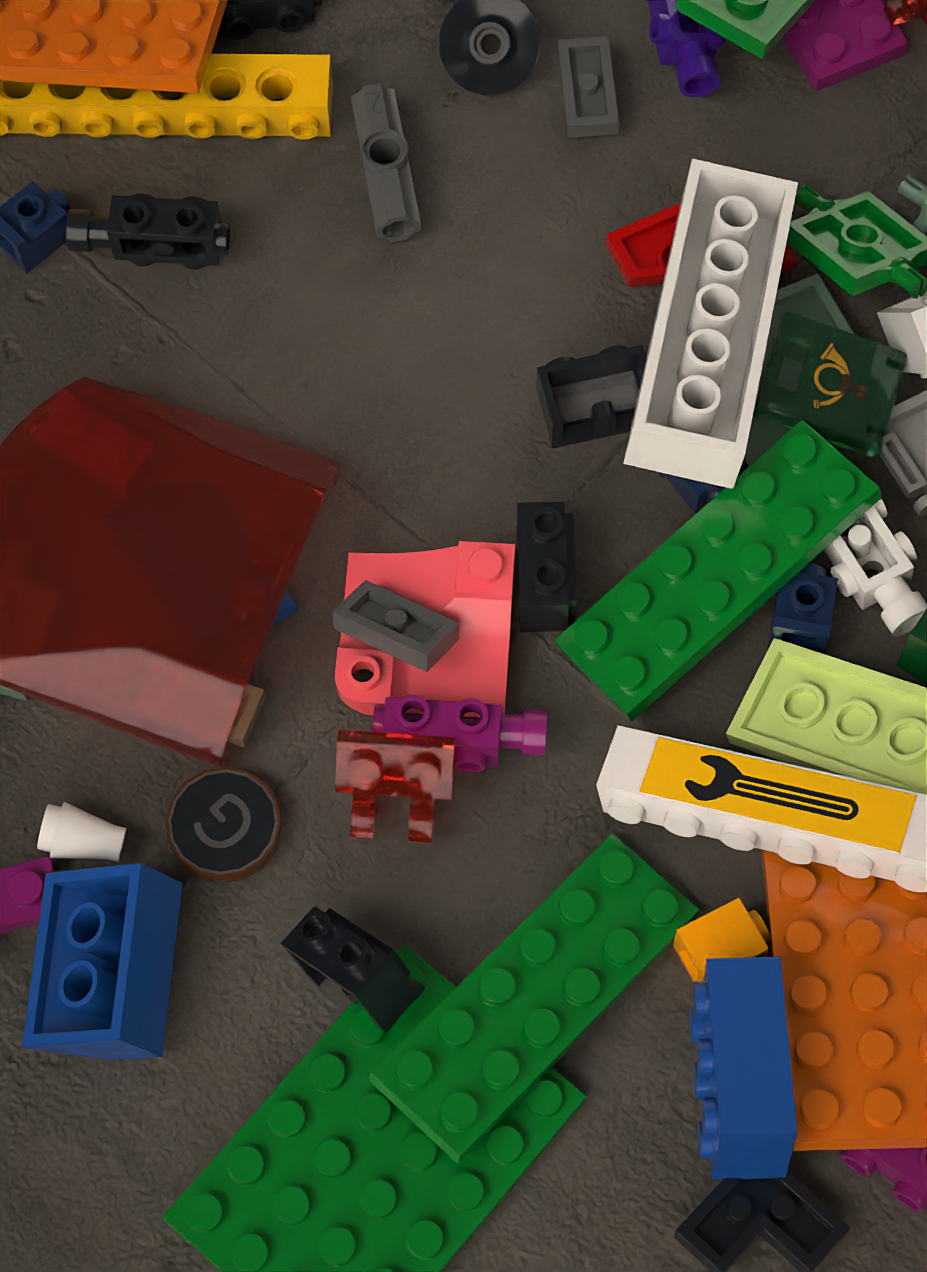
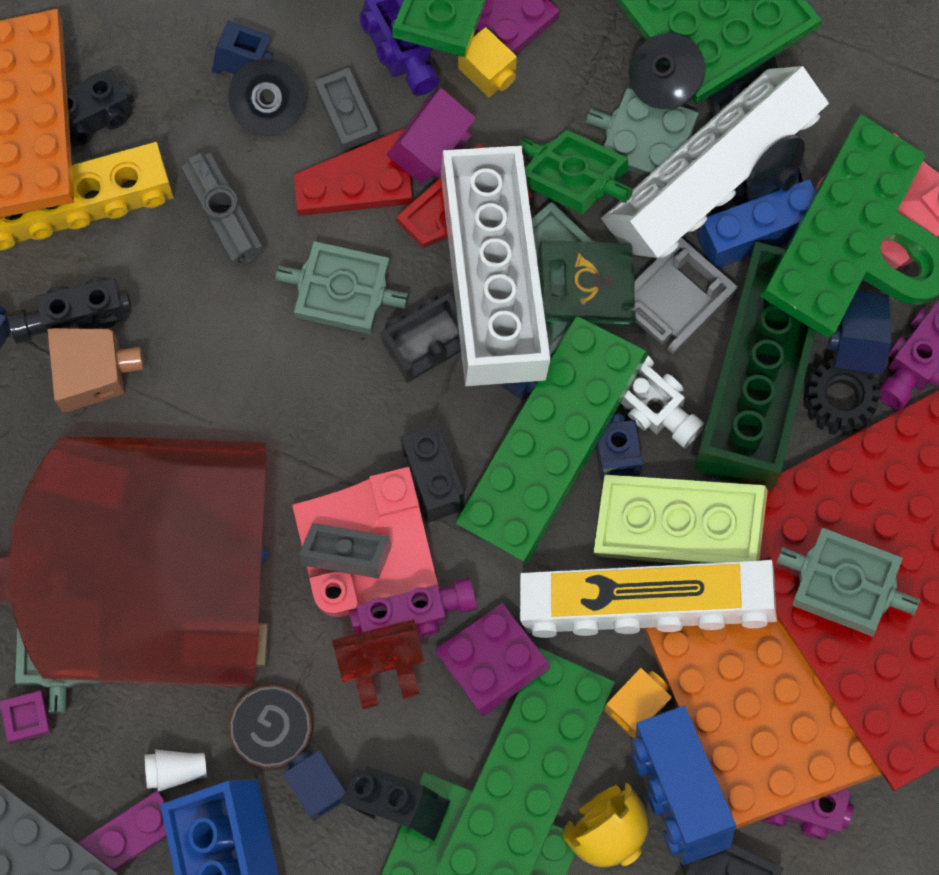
camera: 20 degrees left, 5 degrees up
(149, 305) = (89, 366): none -> nougat torso
(254, 912) = (314, 784): none -> dark blue brick
(506, 303) = (342, 287): none -> sand green plate
(544, 827) = (492, 659): none -> magenta plate
(573, 178) = (354, 181): none -> red wing
(628, 1098) = (611, 829): none -> yellow cylinder
(700, 131) = (434, 128): none -> magenta brick
(792, 80) = (489, 63): none -> yellow brick

